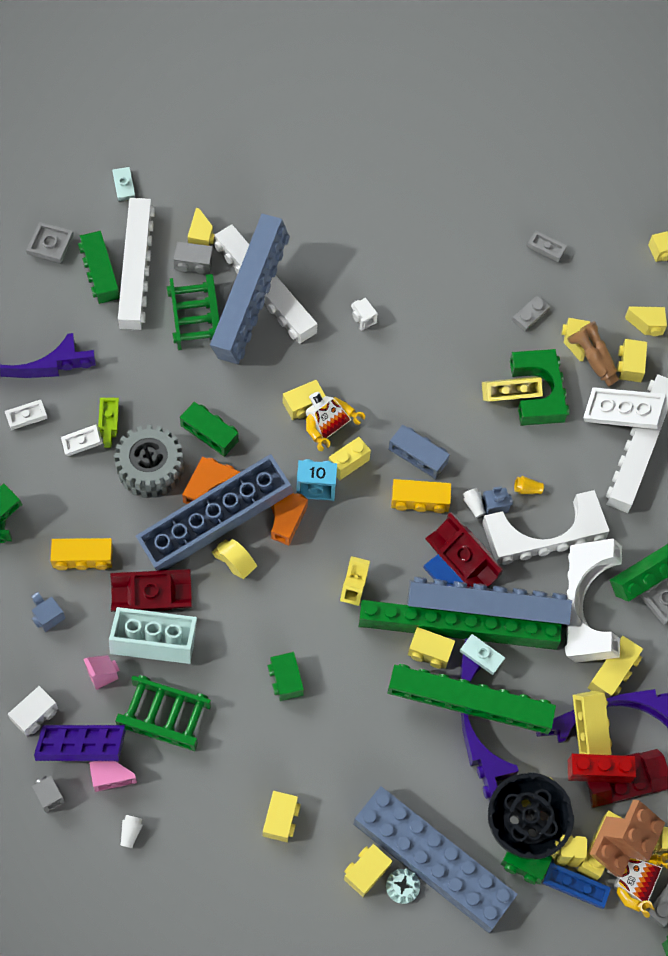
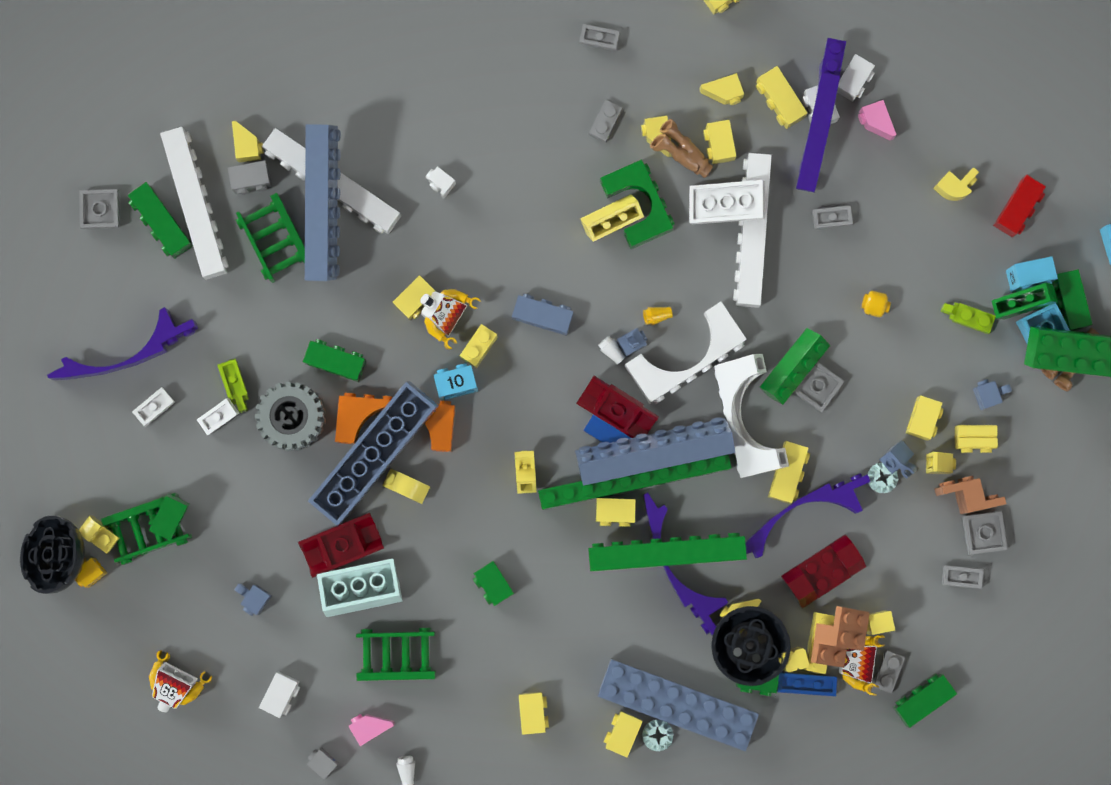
camera: 15 degrees left, 20 degrees up
(80, 743) = (333, 711): dark purple plate -> none
(82, 553) = (263, 530): yellow brick -> none
(101, 670) = (326, 637): bright pink slope -> none
(123, 183) = (146, 112): light aqua plate -> none
(421, 496) = (559, 361): yellow brick -> none
(482, 654) = (664, 505): light aqua plate -> none
(592, 723) = (781, 537): light yellow brick -> none
(601, 768) = (800, 577): red brick -> none

